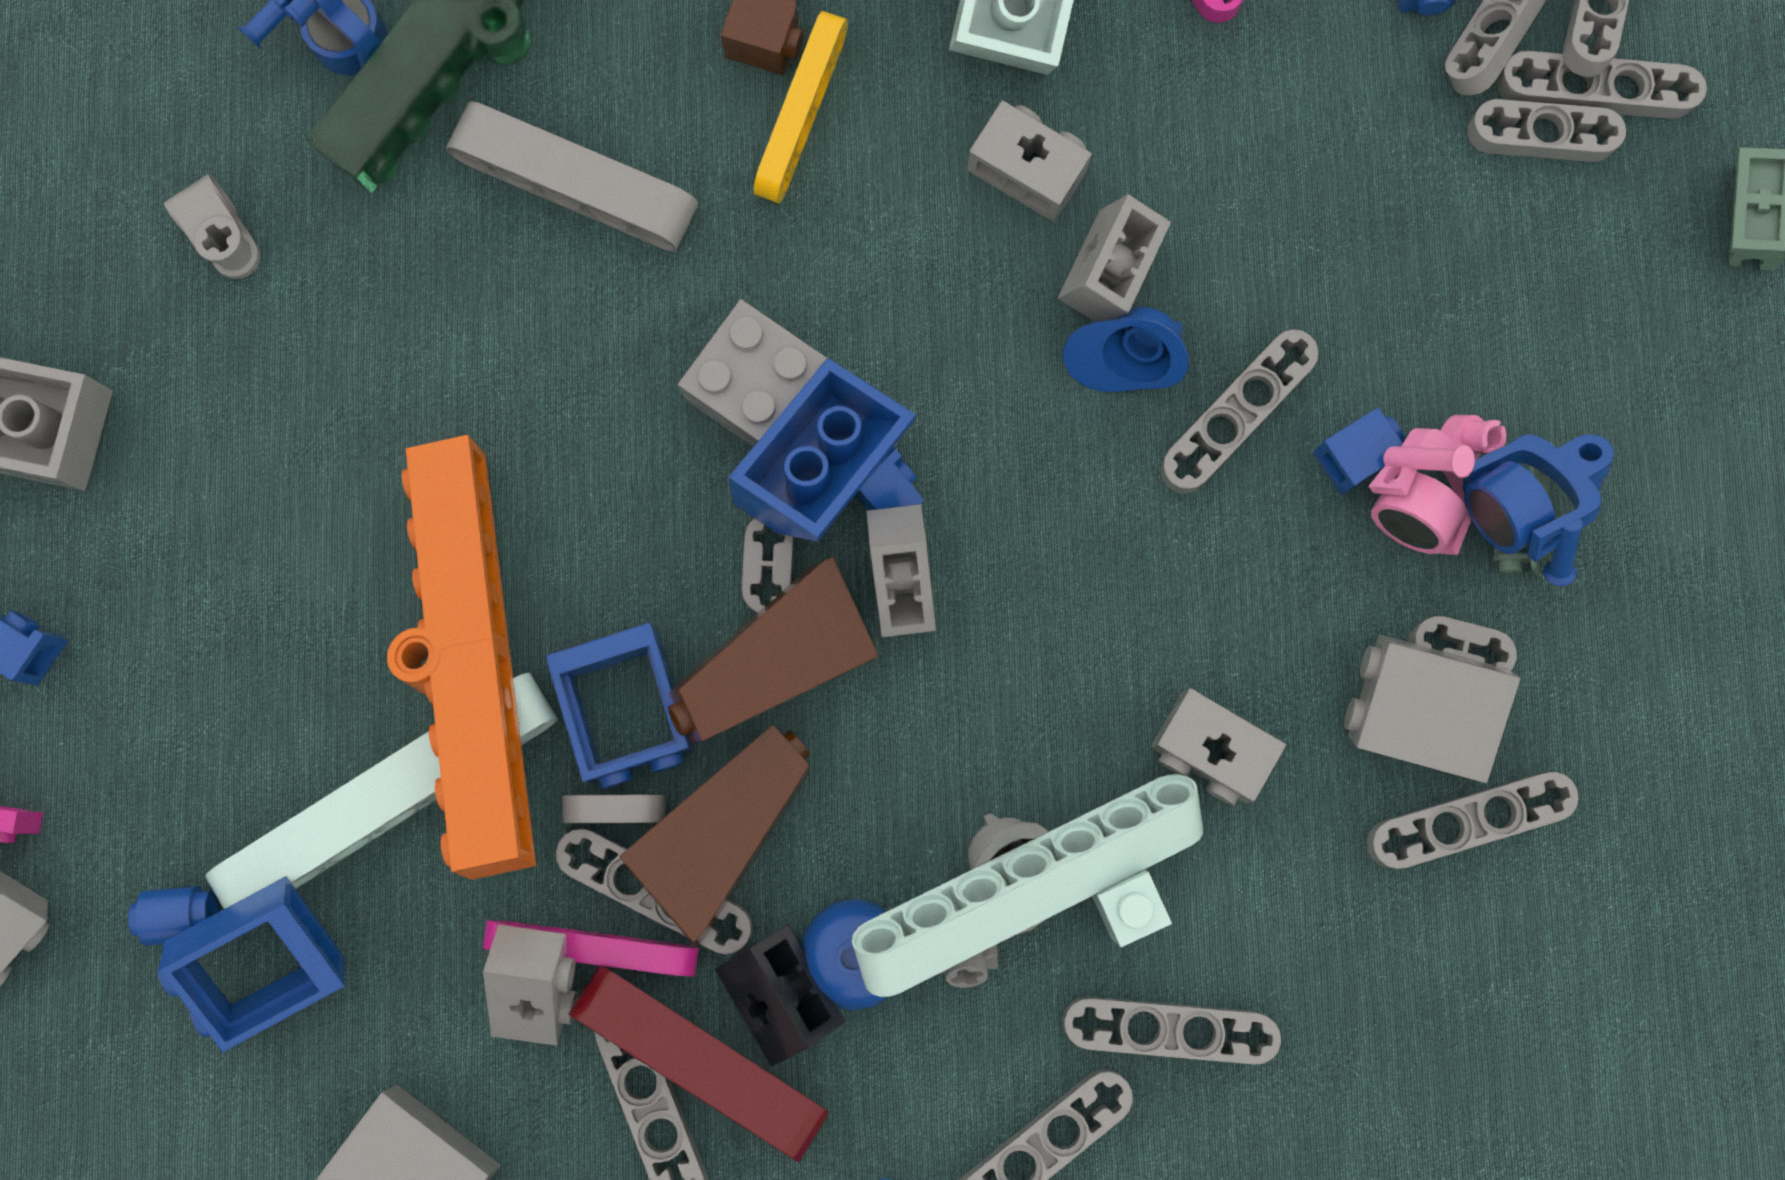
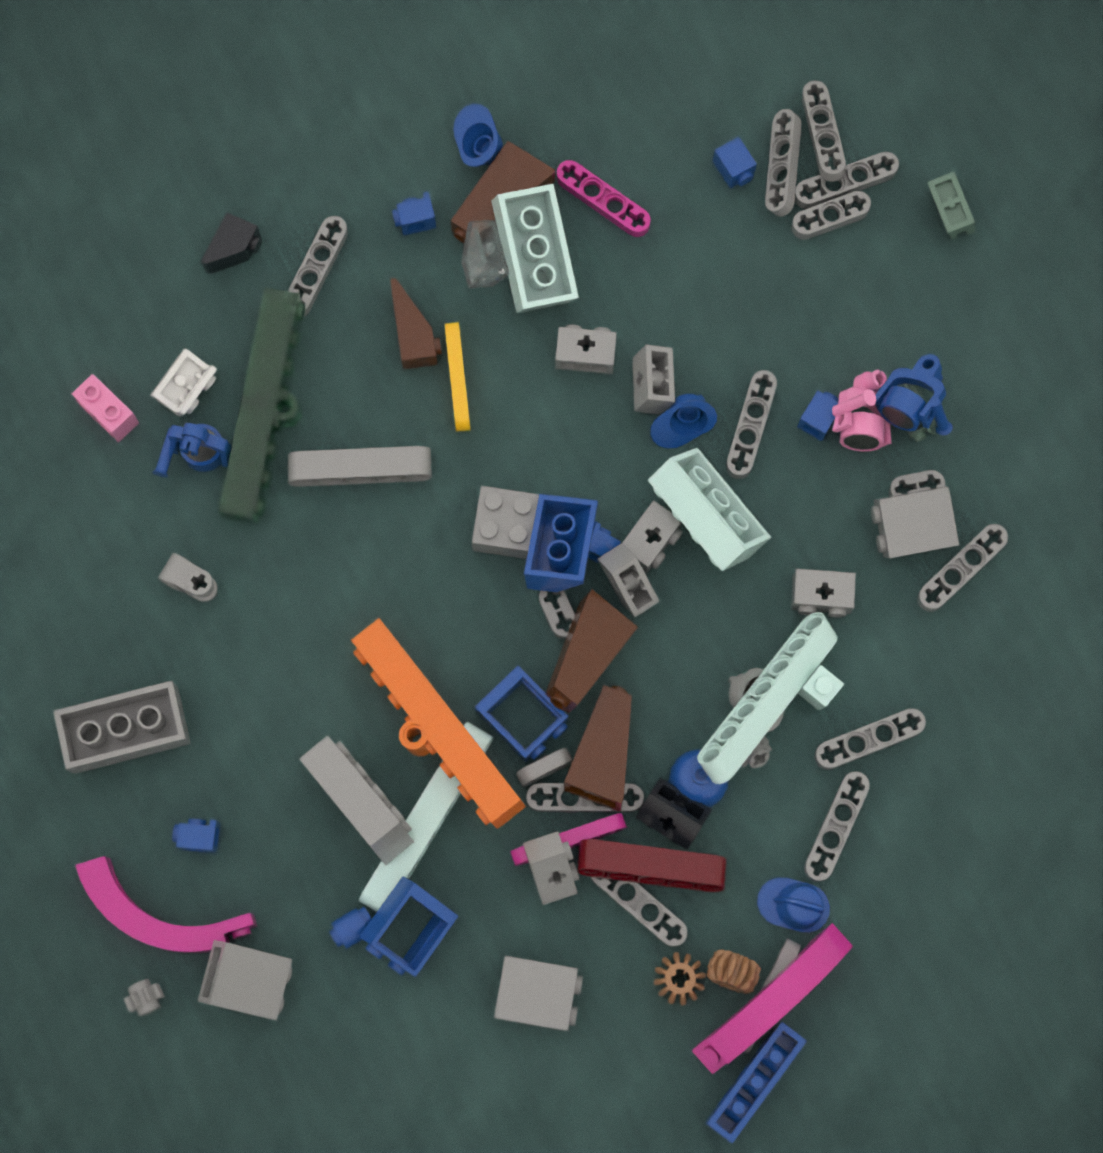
camera: 30 degrees left, 5 degrees down
(269, 718) = (358, 798): none -> light grey brick
(992, 492) = (654, 521): none -> light grey brick
(1094, 517) = (708, 509): none -> light aqua brick

